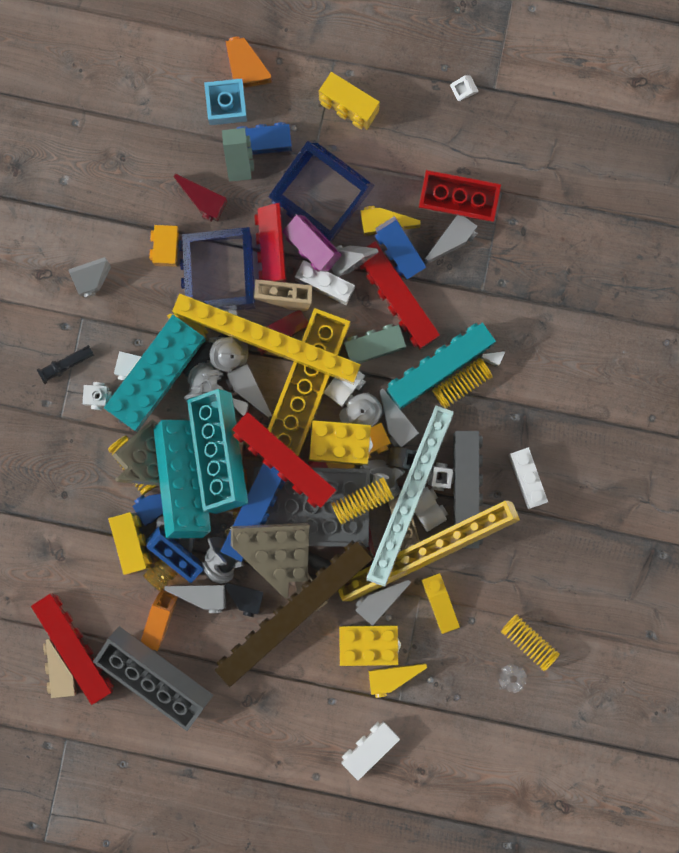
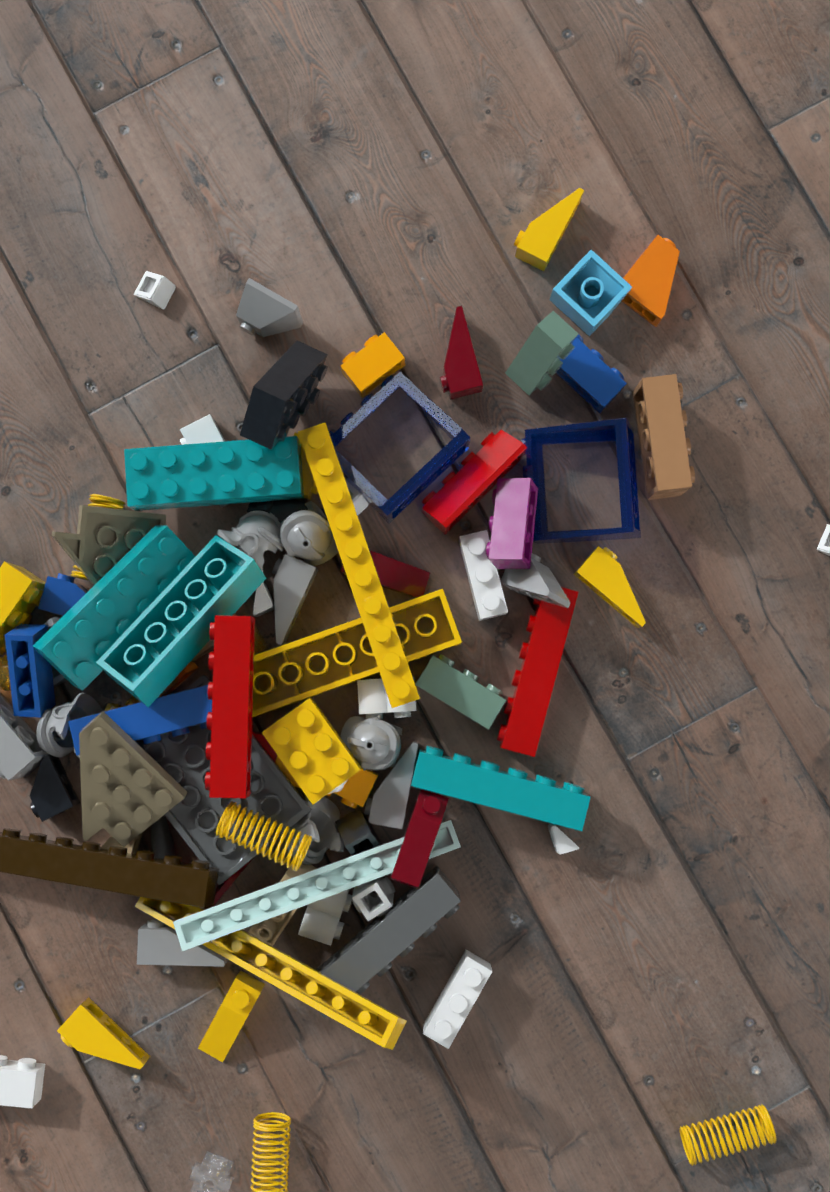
camera: 50 degrees right, 0 degrees up
(24, 326) = (155, 289): none -> white slope
(56, 368) = (138, 364): black pin -> none
(90, 393) = (139, 430): white brick -> none
(146, 302) = (284, 395): none -> black brick
(173, 97) = (545, 232): none -> yellow slope
(284, 294) = (428, 540): tan slope -> none
(333, 130) = (663, 436): none -> medium nougat brick
(348, 101) = (711, 427): yellow brick -> none
(369, 645) = (110, 978): yellow piece -> none
(399, 248) = (594, 626): blue brick -> none
(430, 426) = (419, 838): none -> dark red slope
(439, 395) = (539, 840): yellow piece -> none
(454, 237) = (663, 677): light grey slope -> none
(459, 196) = (713, 644): red slope -> none

